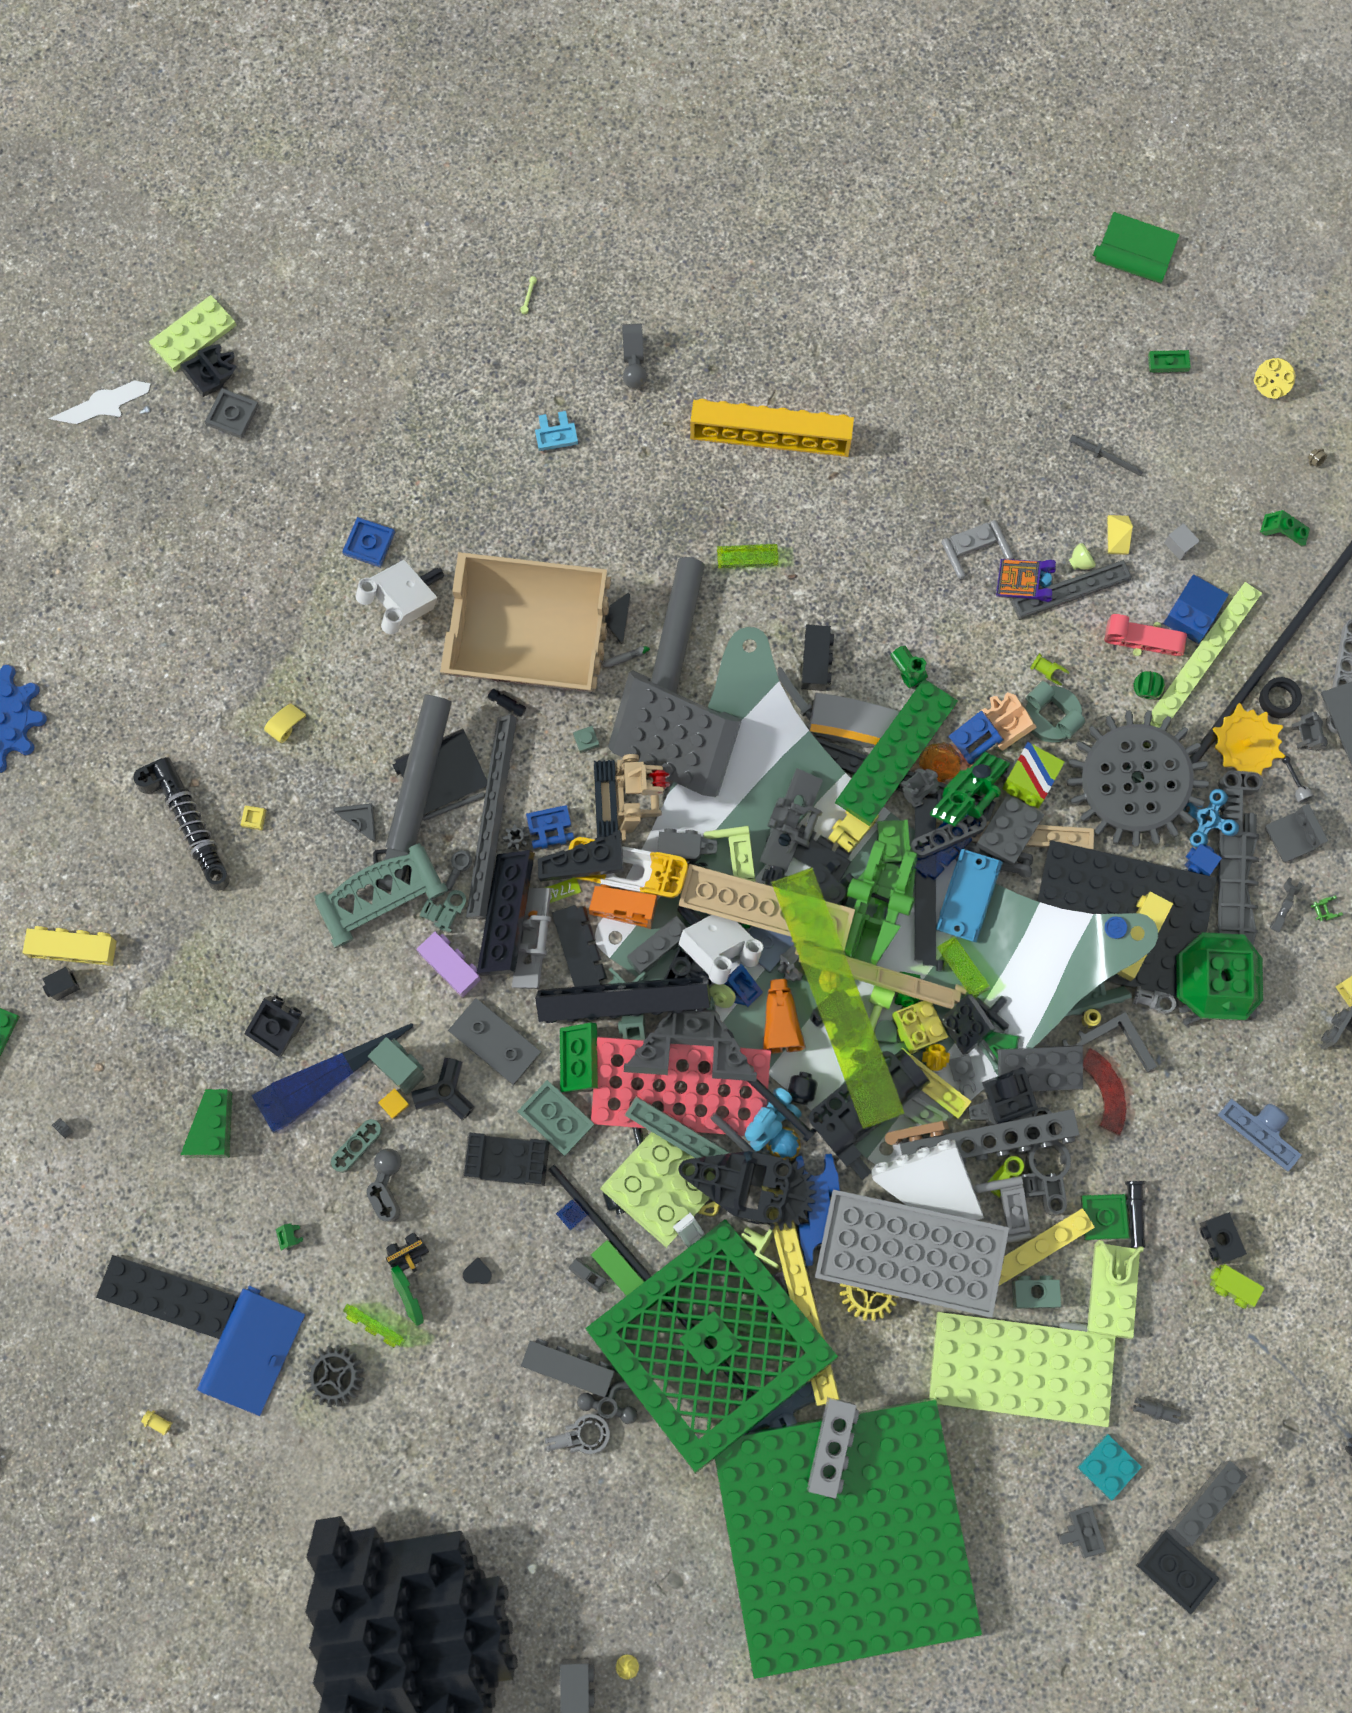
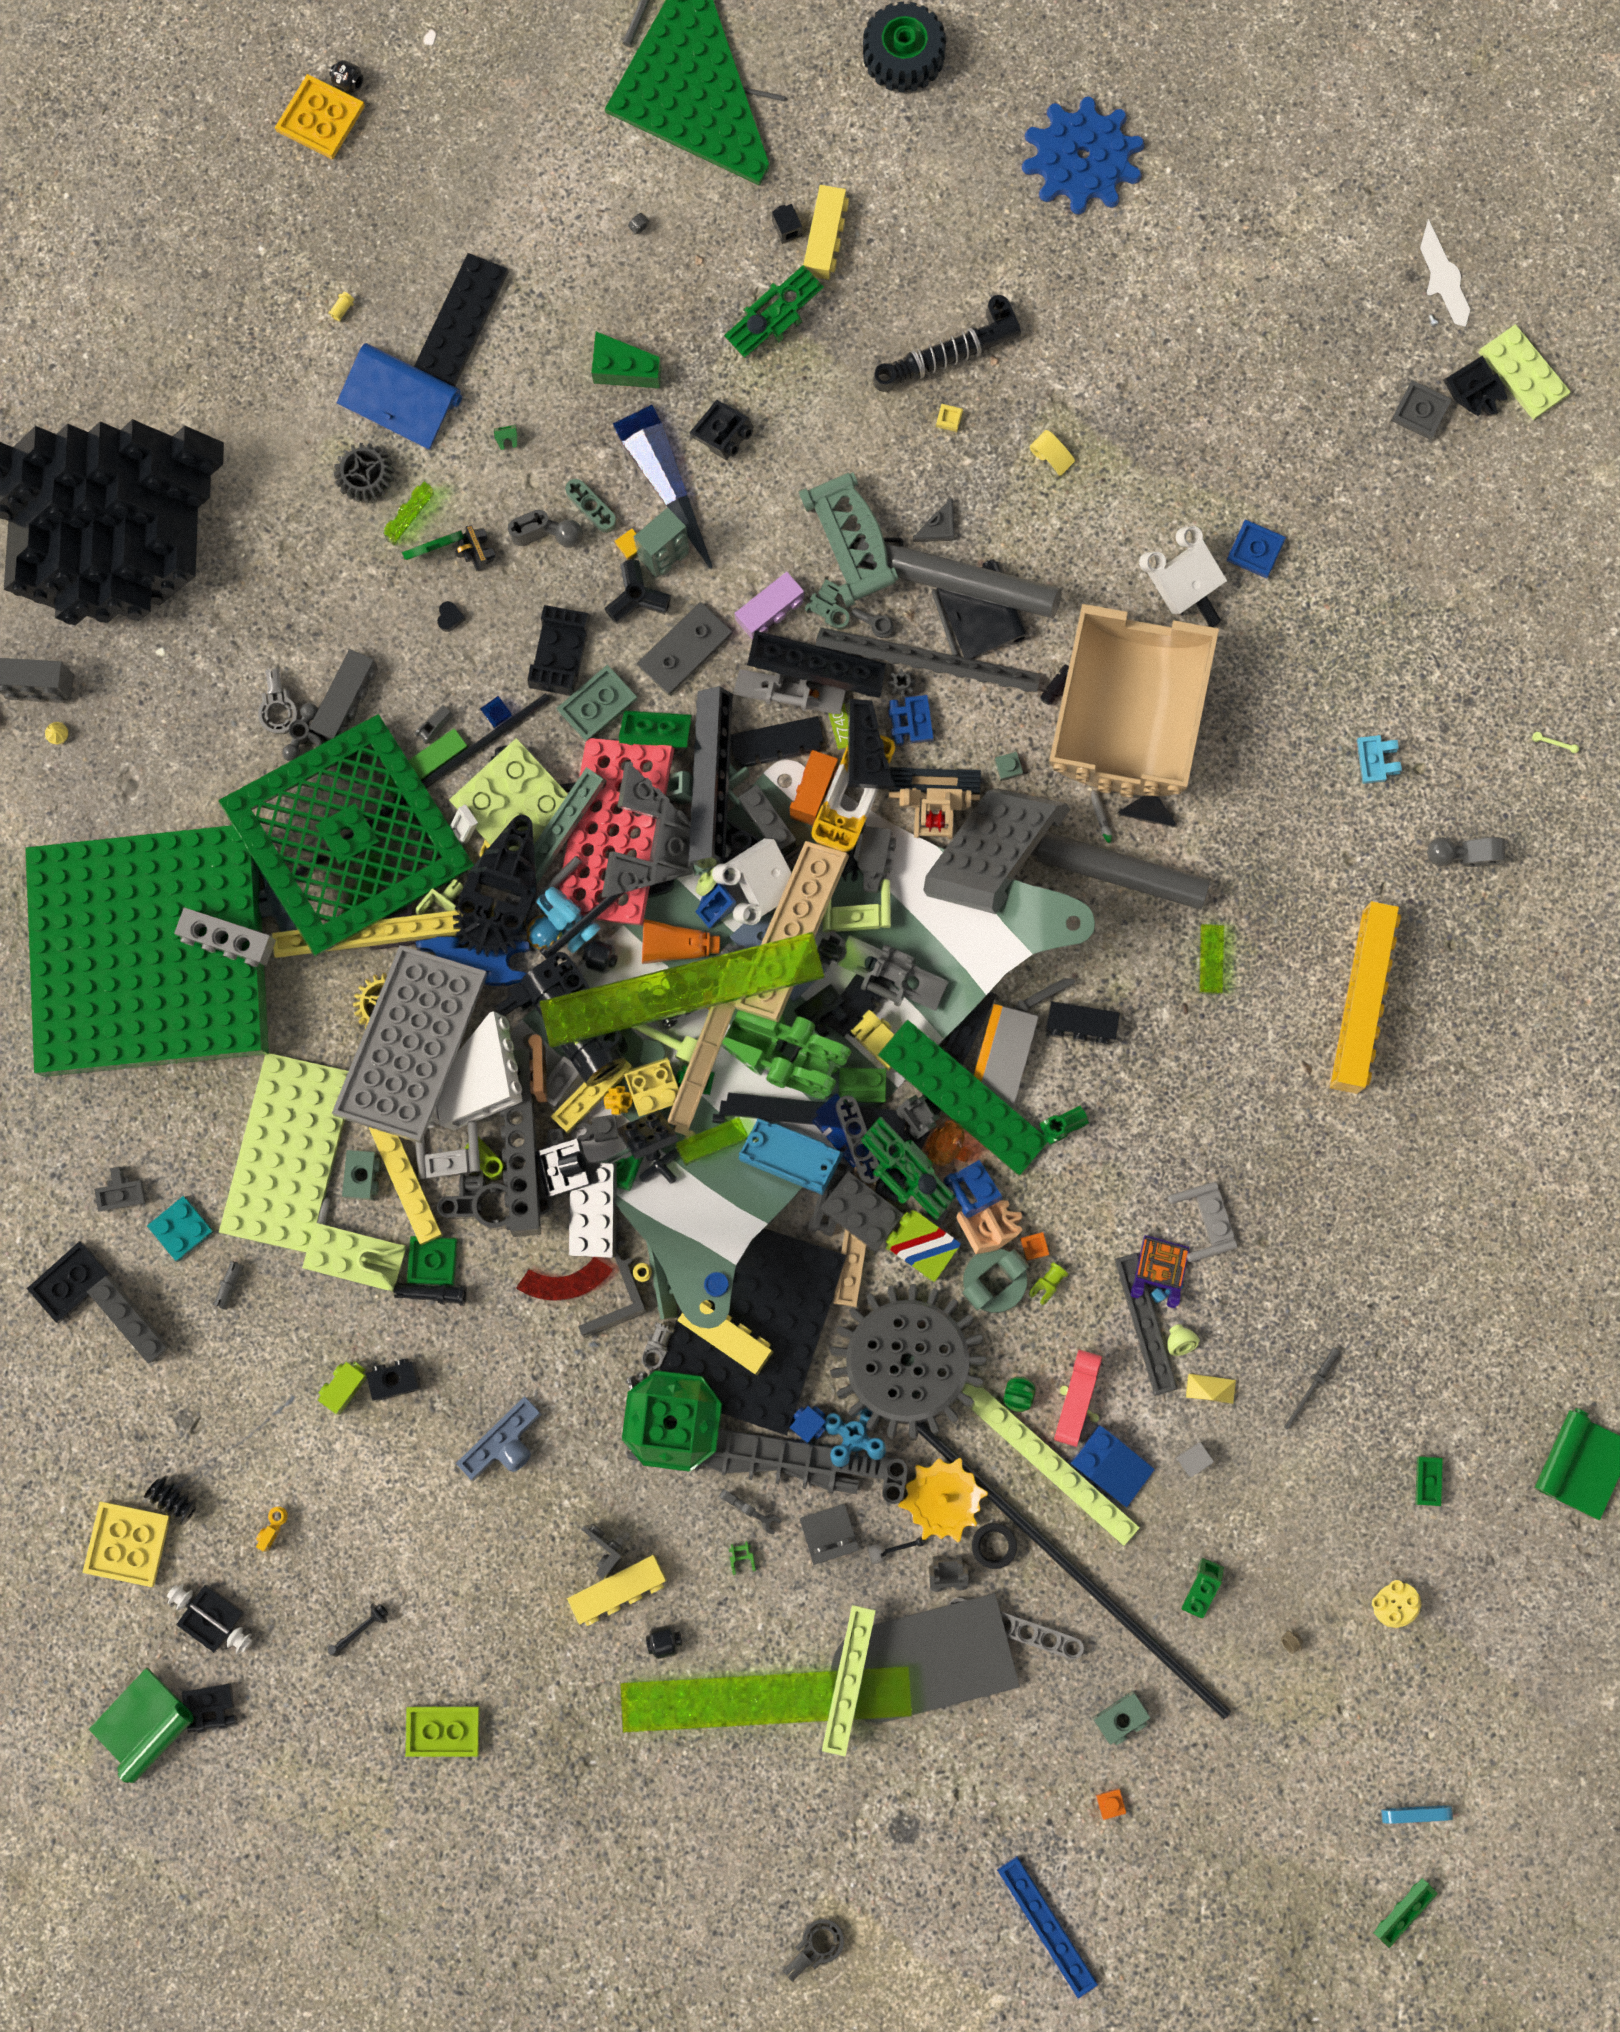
camera: 100 degrees right, 5 degrees up
(159, 981) = (779, 316): none -> green piece
(1019, 683) = (1034, 1246): none -> orange plate

